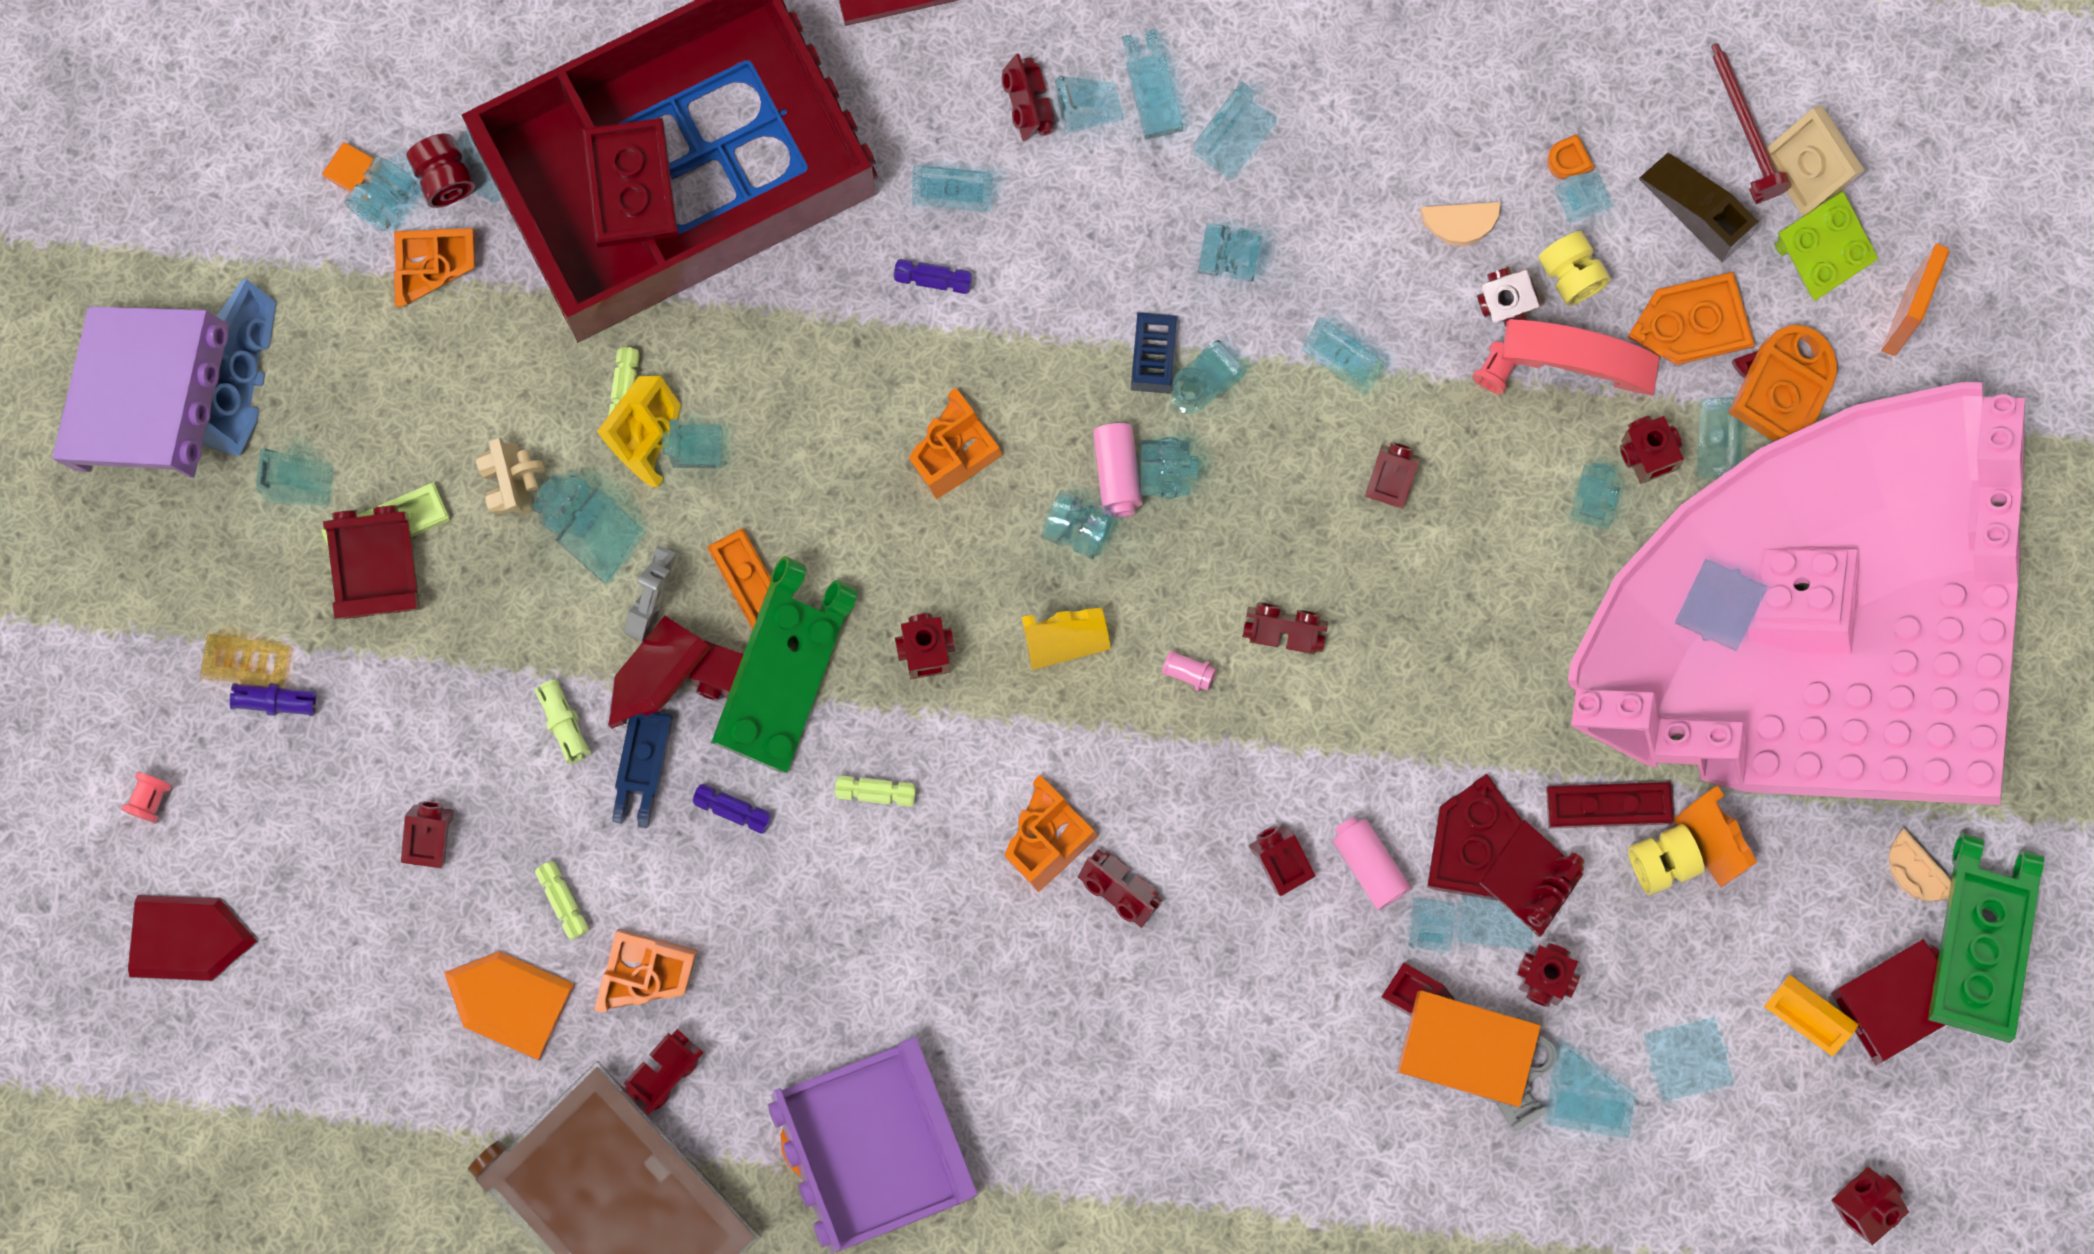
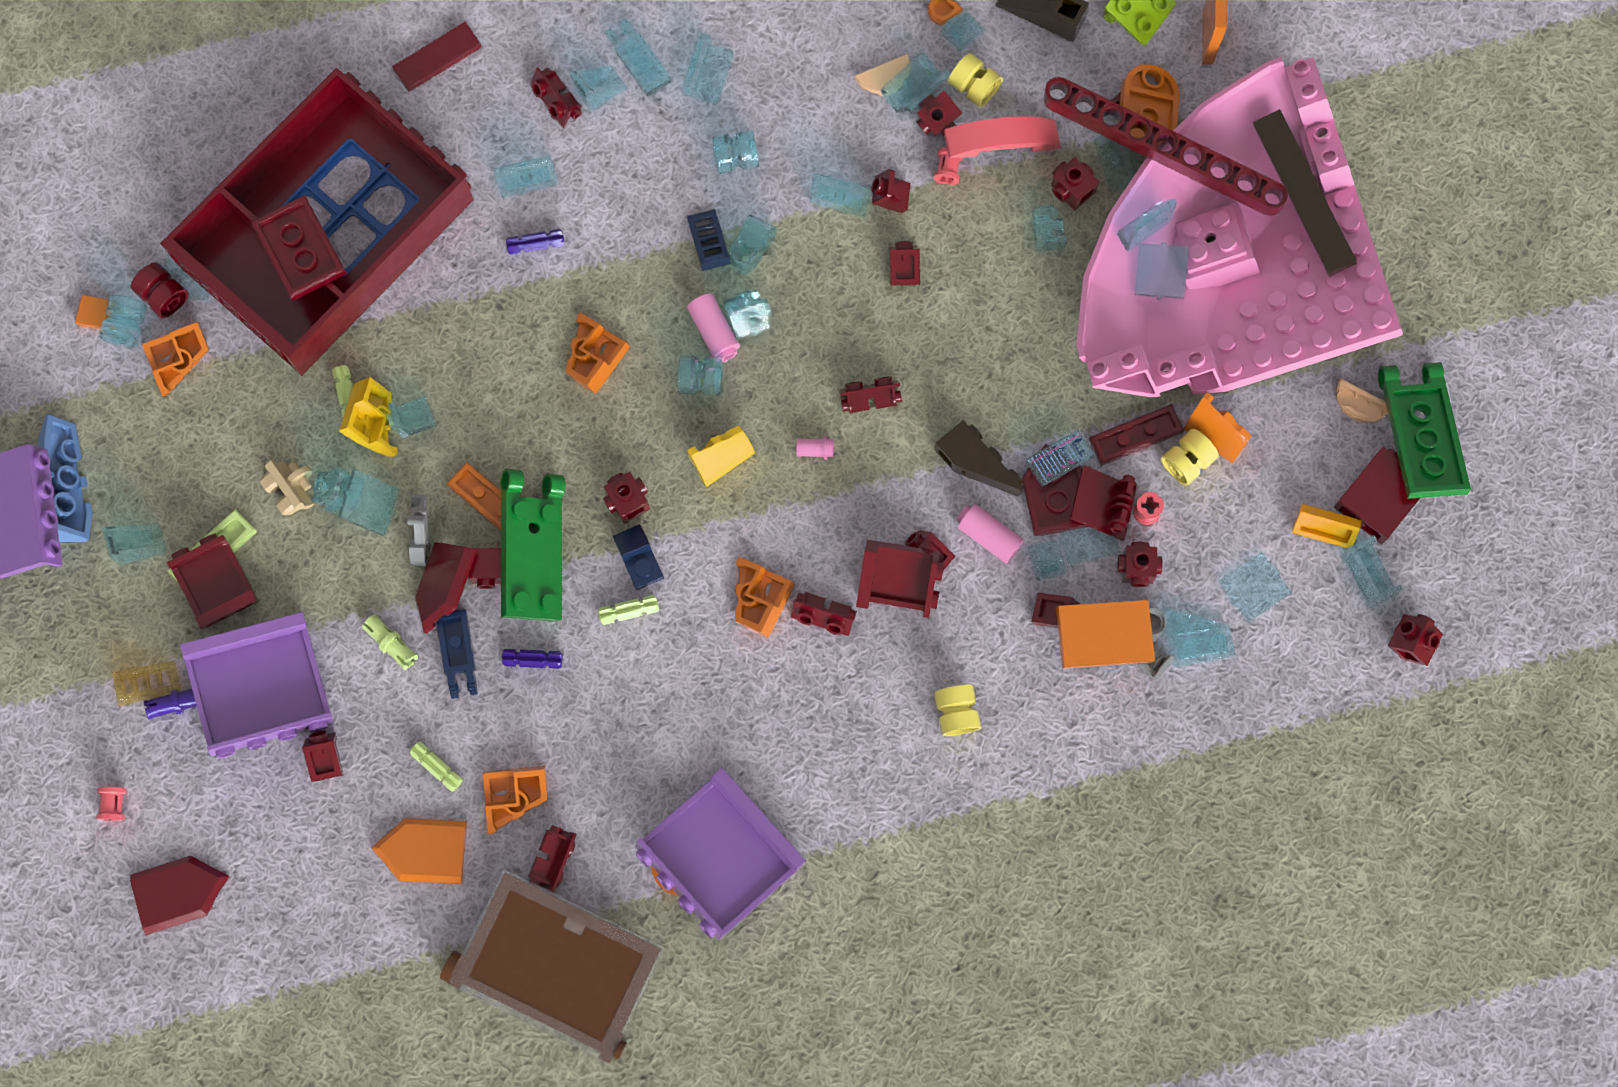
camera: 20 degrees left, 0 degrees up
(378, 716) = (256, 685): none -> medium lavender panel
(912, 728) = (638, 557): none -> dark blue slope
(1233, 877) = (899, 576): none -> dark red panel
(1243, 1075) = (957, 710): none -> light yellow wheel
(1382, 756) = (970, 457): none -> dark brown slope
(1409, 375) = (890, 192): none -> dark red bracket
(1492, 244) = (913, 83): none -> clear light blue panel
(1497, 799) = (1060, 458): none -> clear light blue tile
(1599, 902) = (1155, 502): none -> coral bush
(1694, 320) = (1078, 68): orange tile -> none
(1725, 537) = (1147, 224): none -> clear light blue slope
(1791, 464) = (1172, 159): none -> dark red beam
(1845, 1097) = (1370, 573): none -> clear light blue panel
(1945, 572) = (1304, 193): none -> dark brown tile

